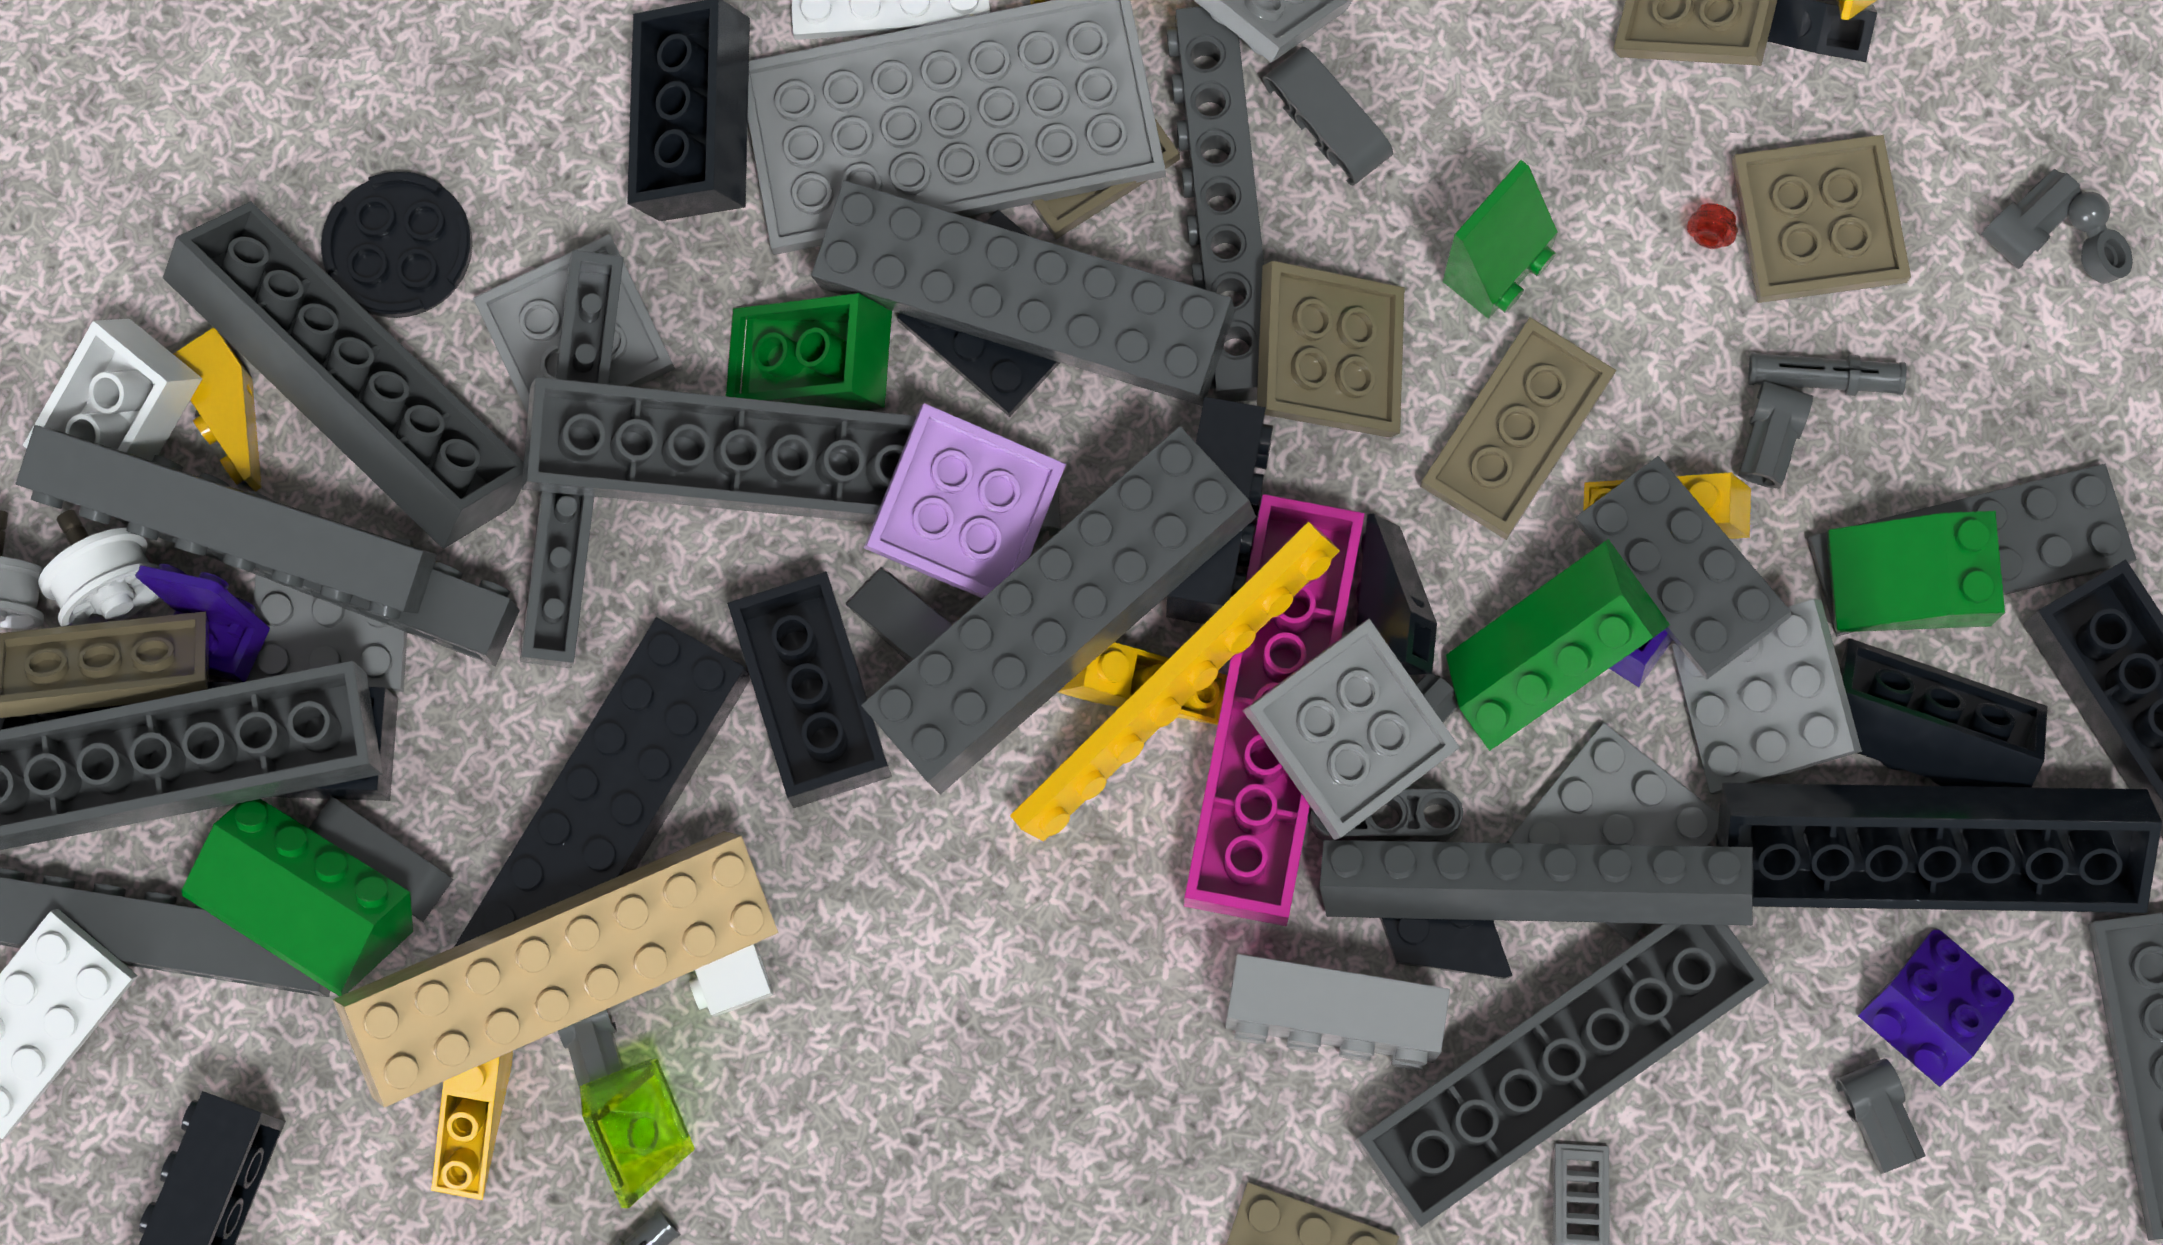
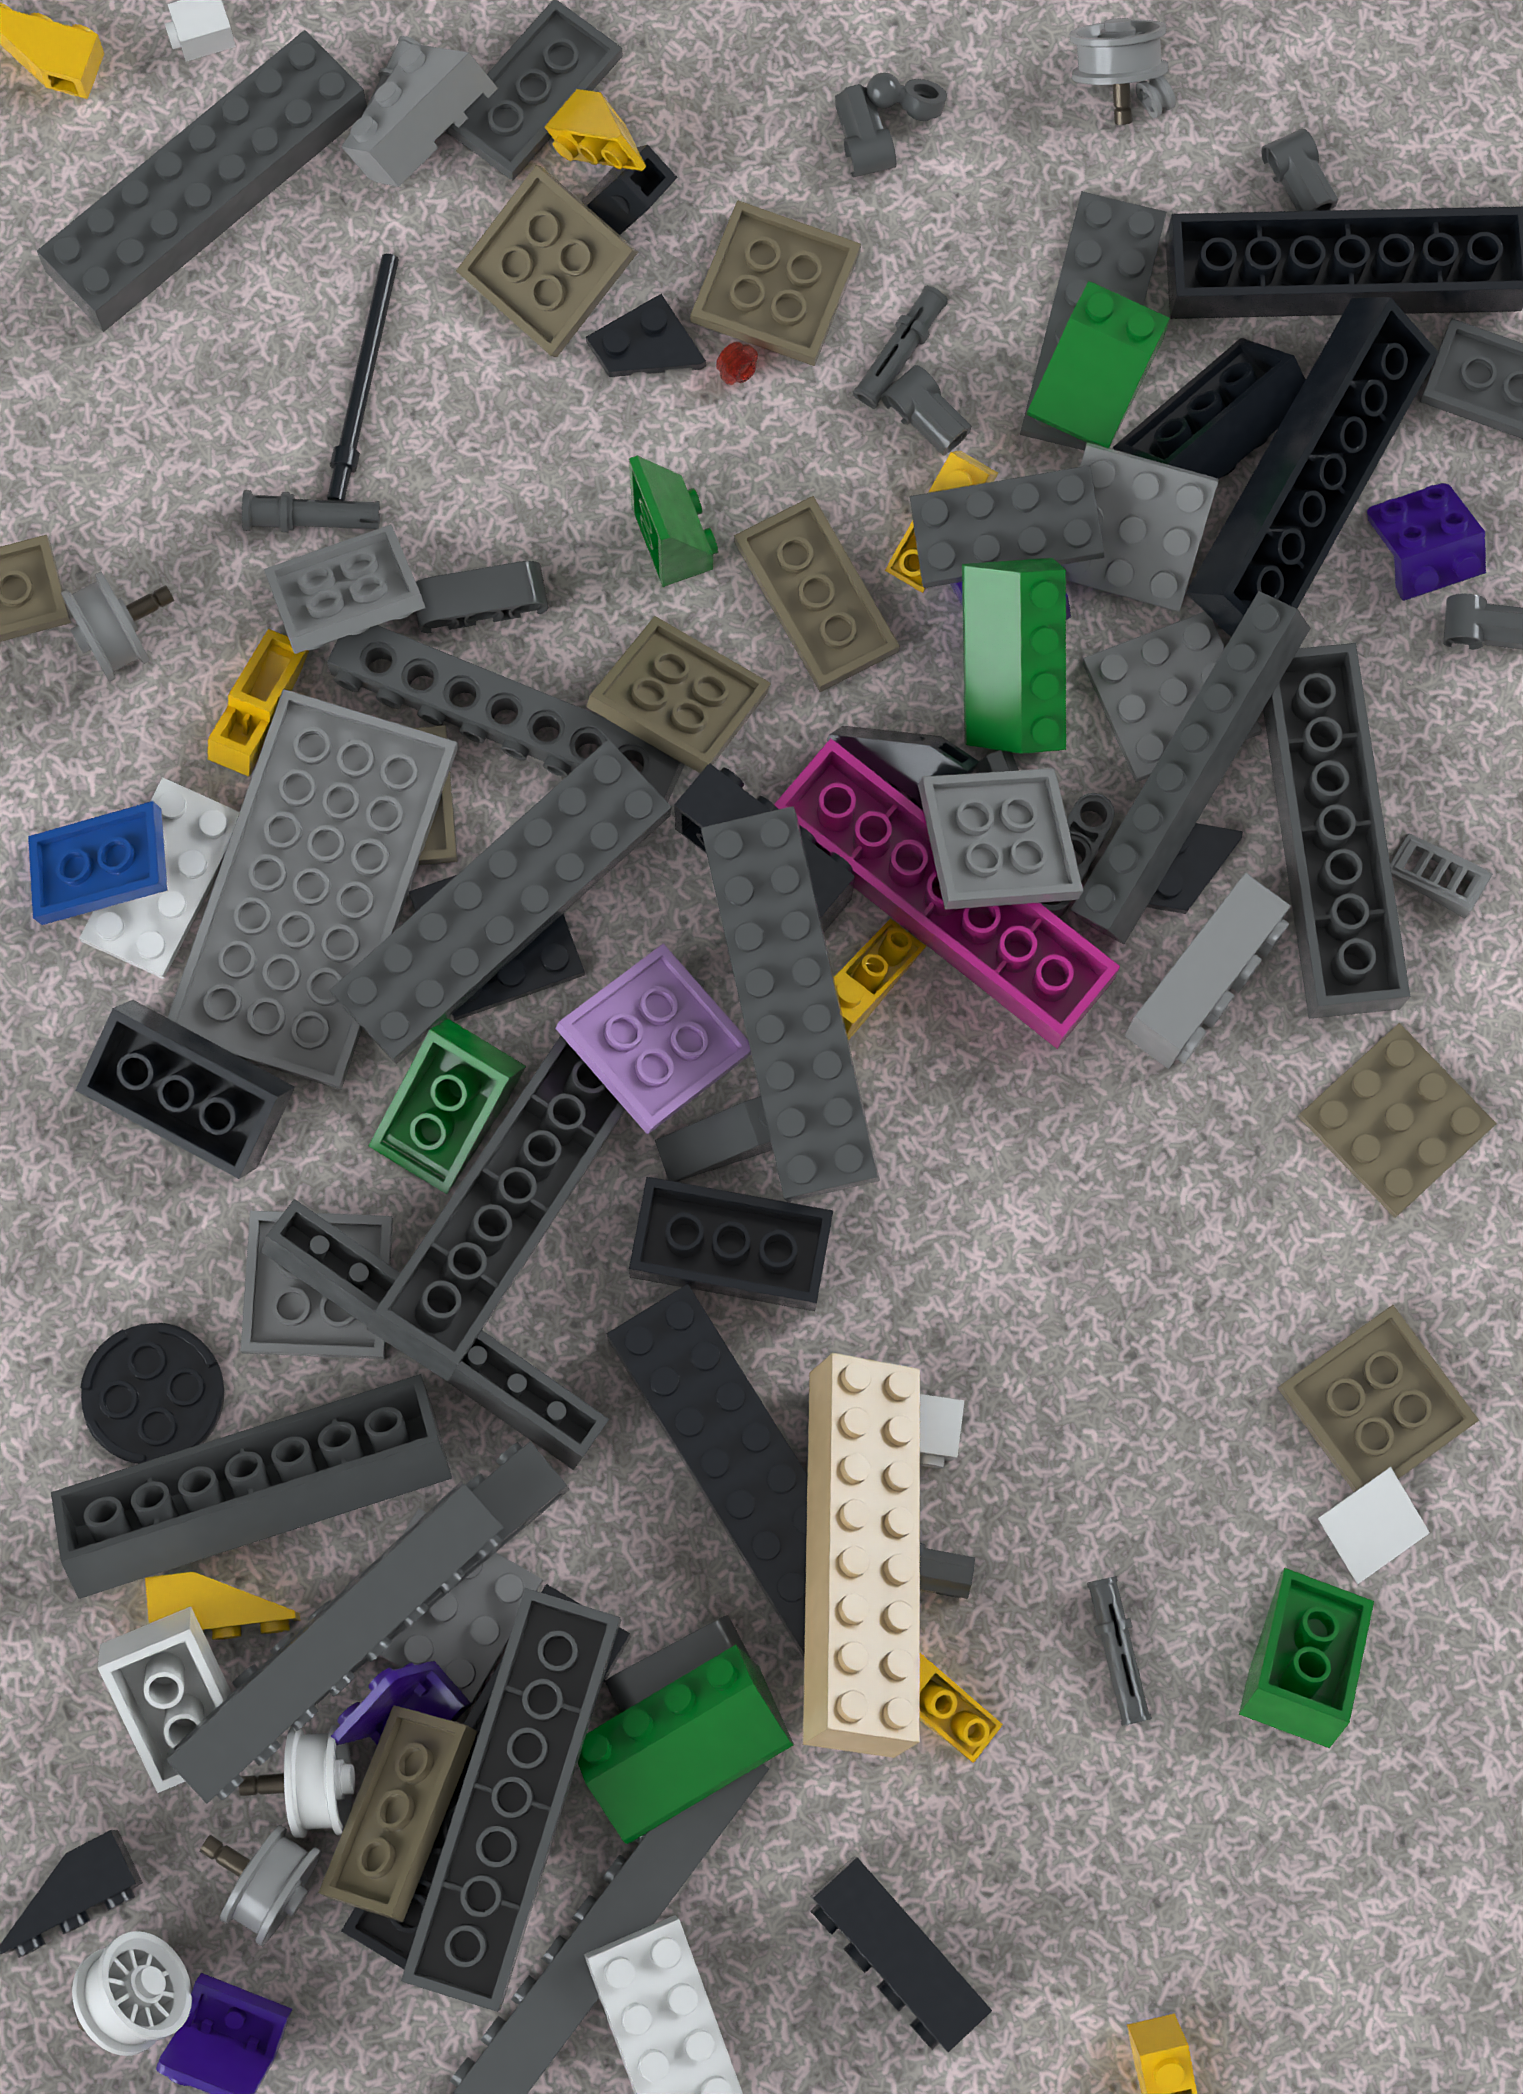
camera: 70 degrees left, 0 degrees up
(635, 1128) = (1016, 1565): clear neon green slope -> none
(1175, 682) = (886, 934): yellow plate -> none
(1684, 129) = (645, 341): none -> black wing

